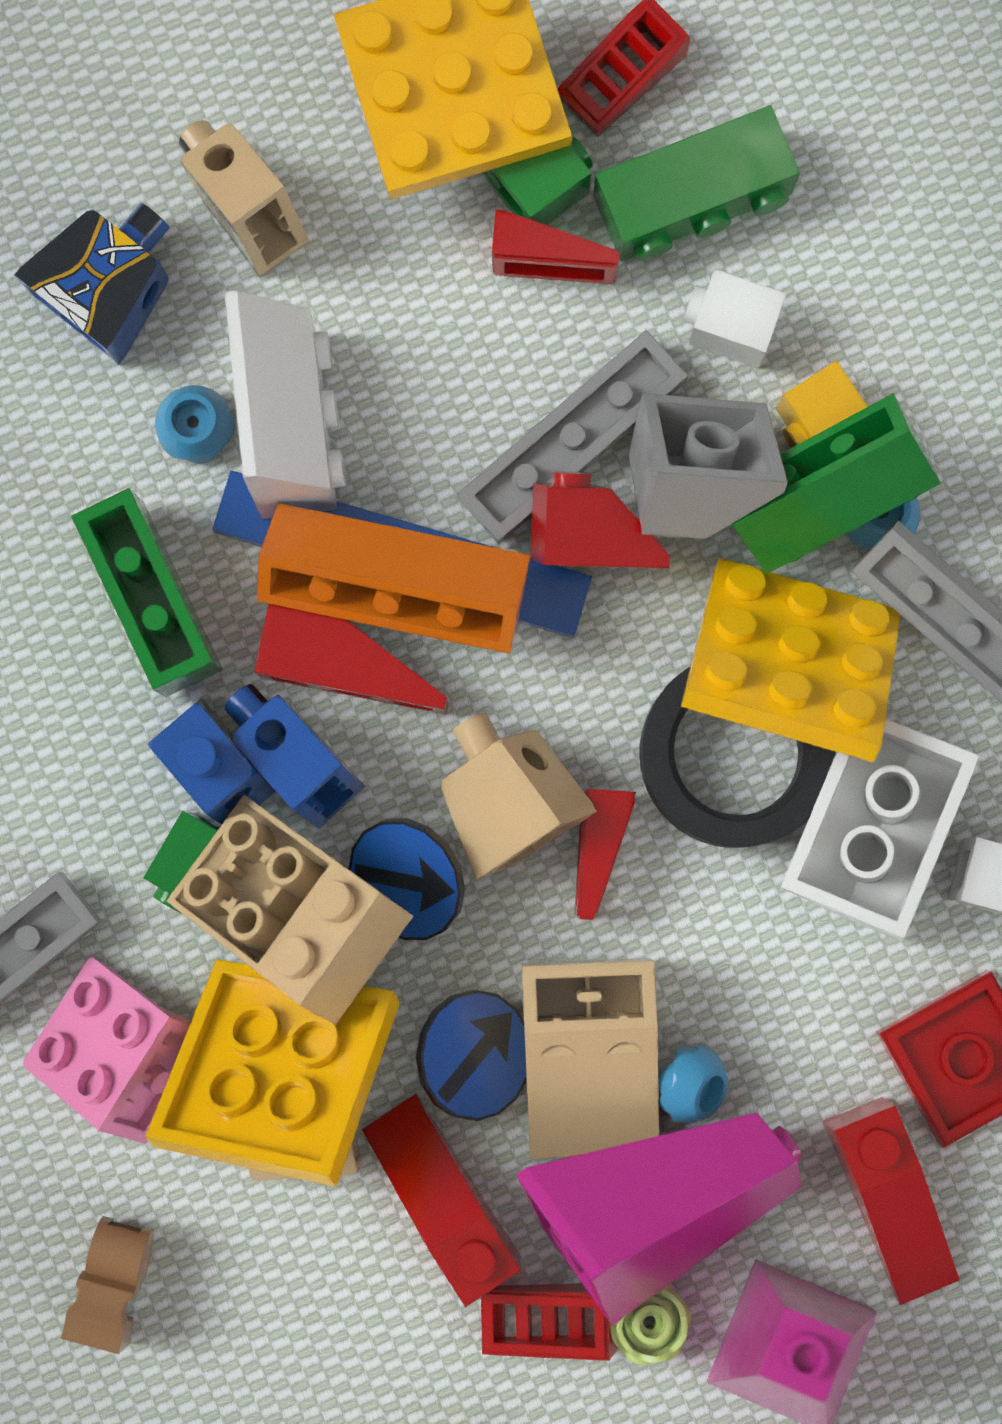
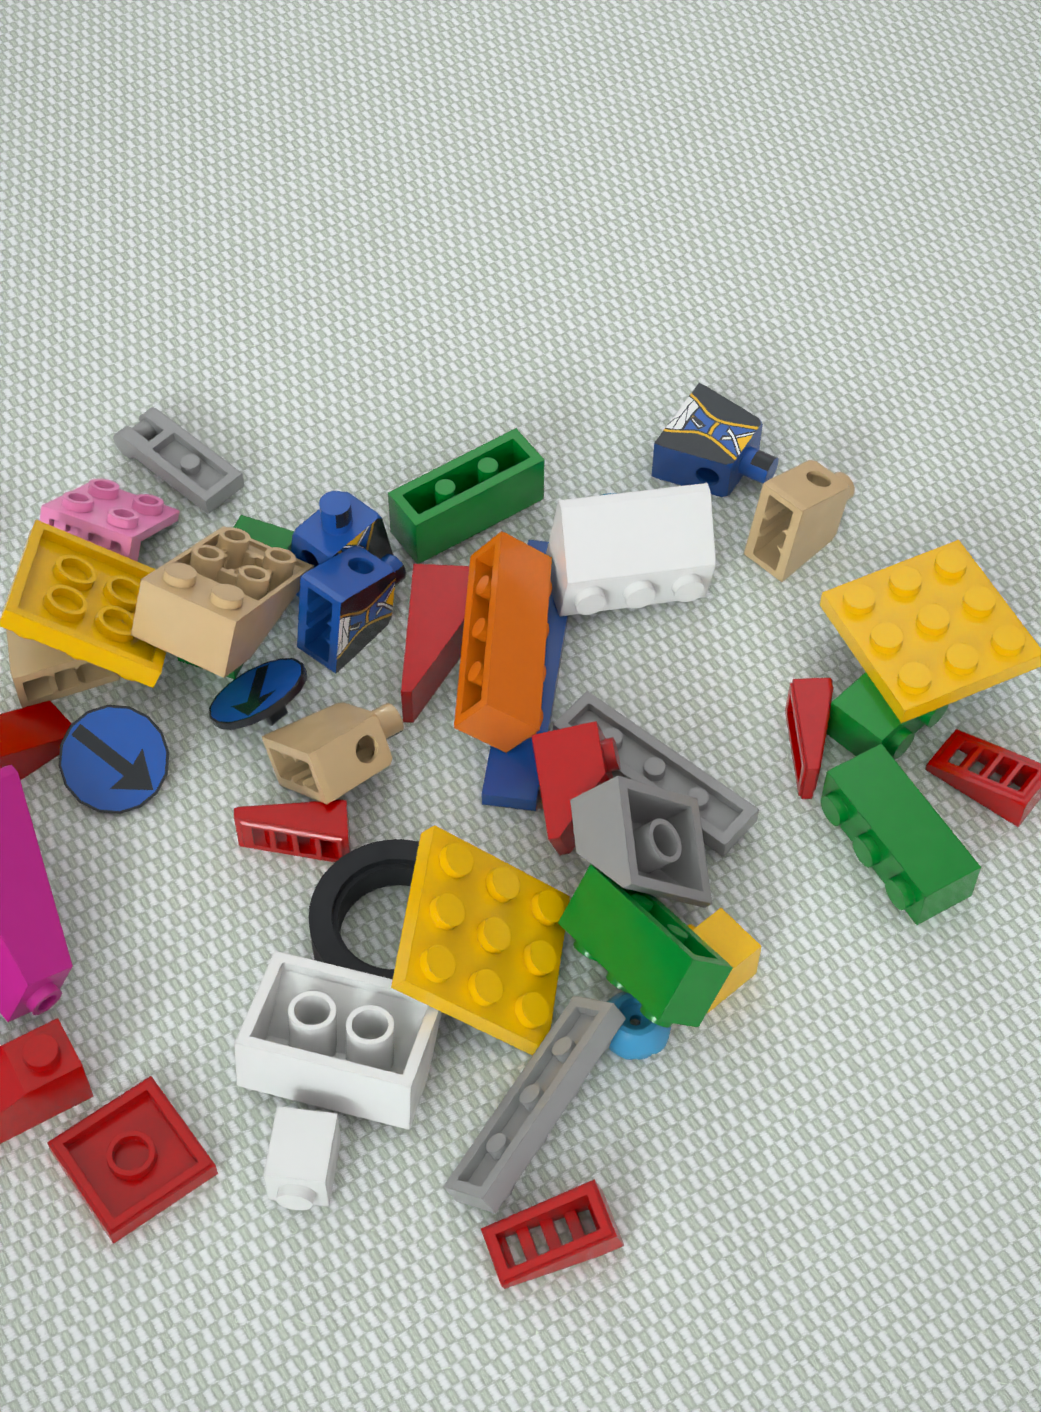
camera: 75 degrees right, 30 degrees down
(590, 1054) = (124, 838): tan slope -> none
(693, 1084) = (109, 911): dark azure plate -> none
(734, 317) = (786, 878): white brick -> none

